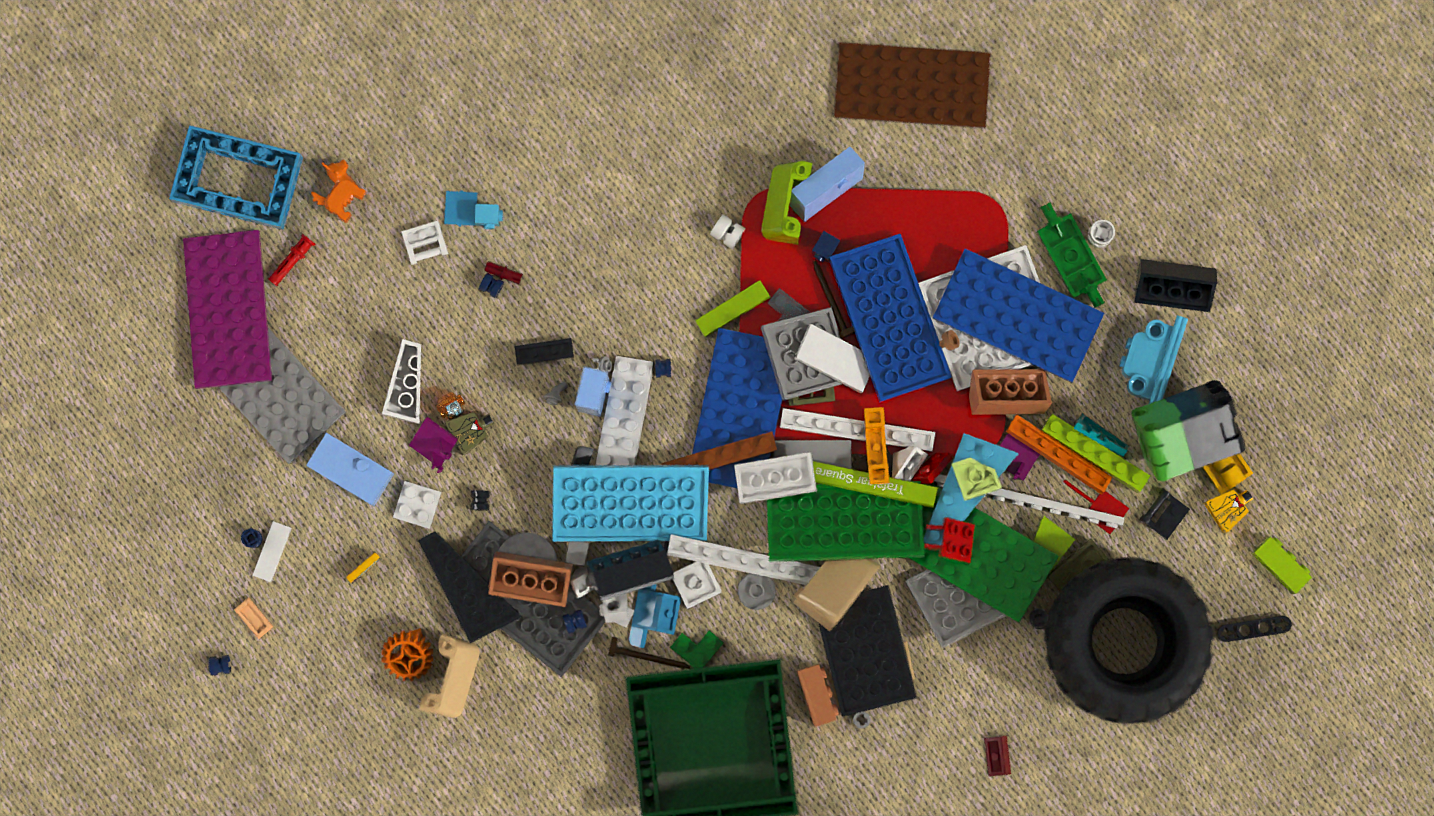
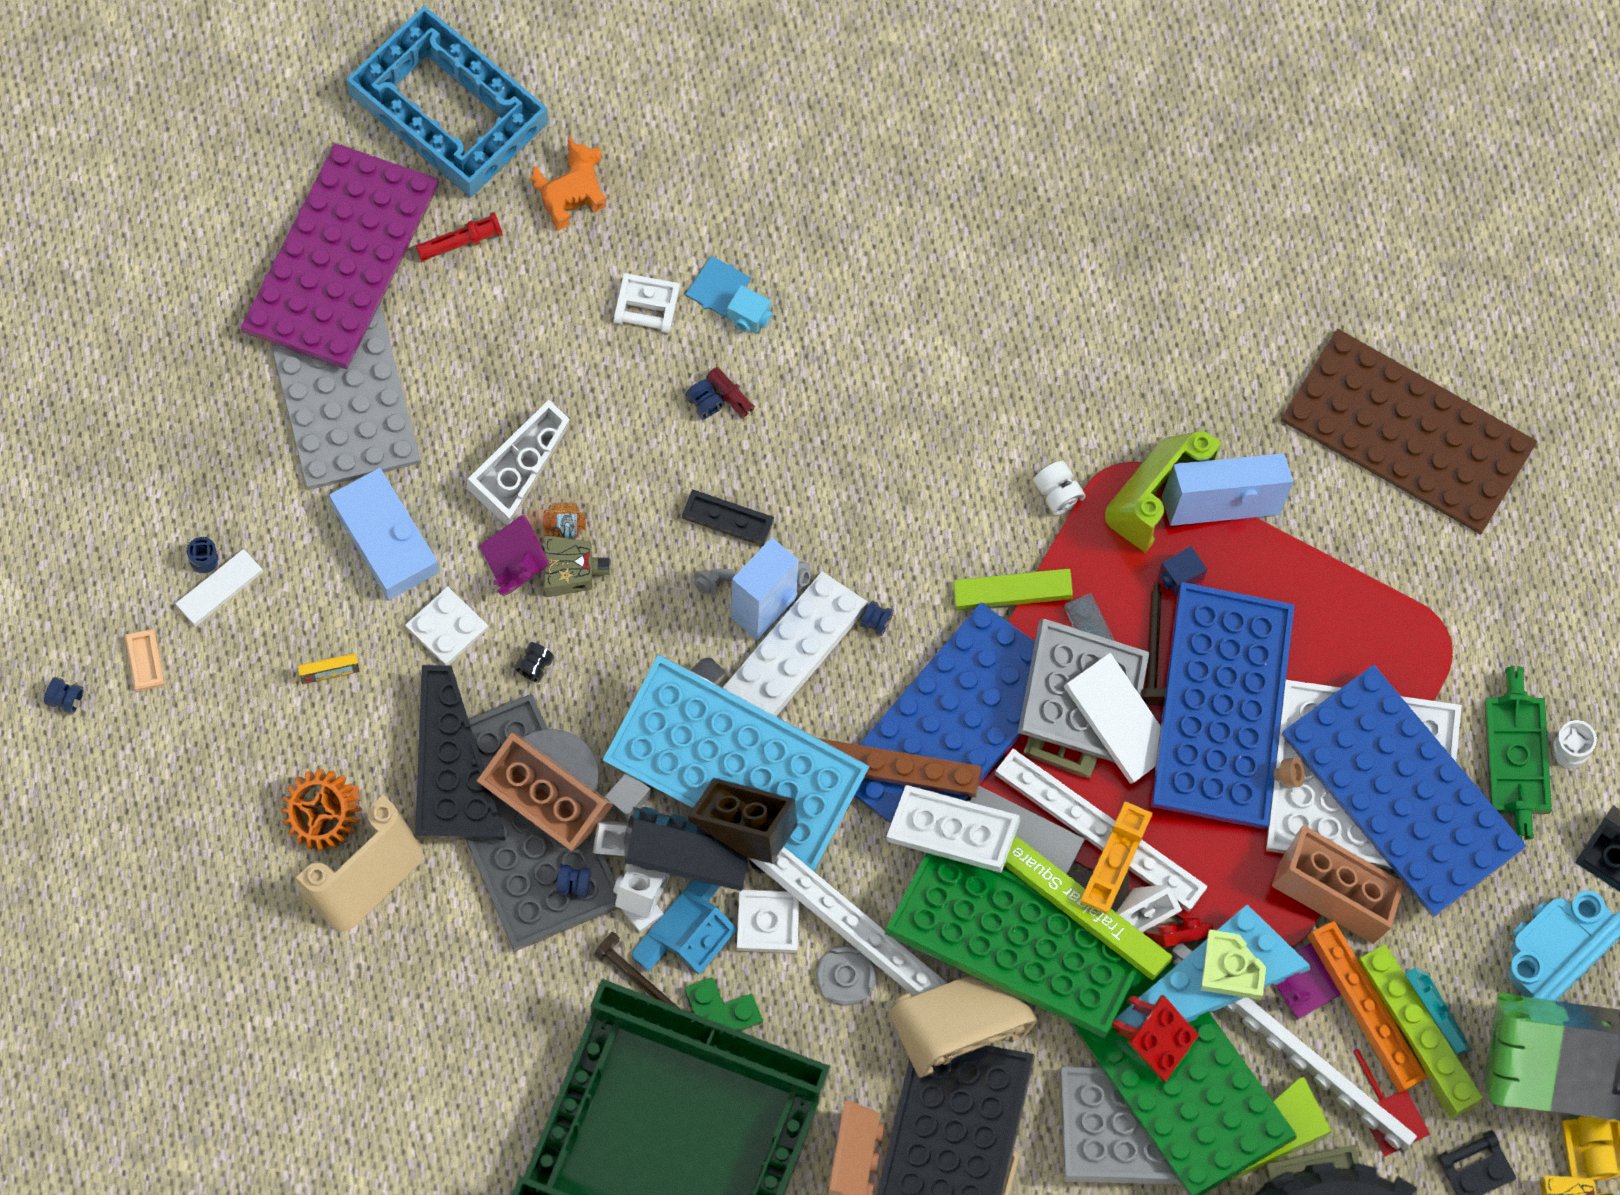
camera: 25 degrees right, 15 degrees down
(654, 535) = (746, 818): none -> dark brown slope

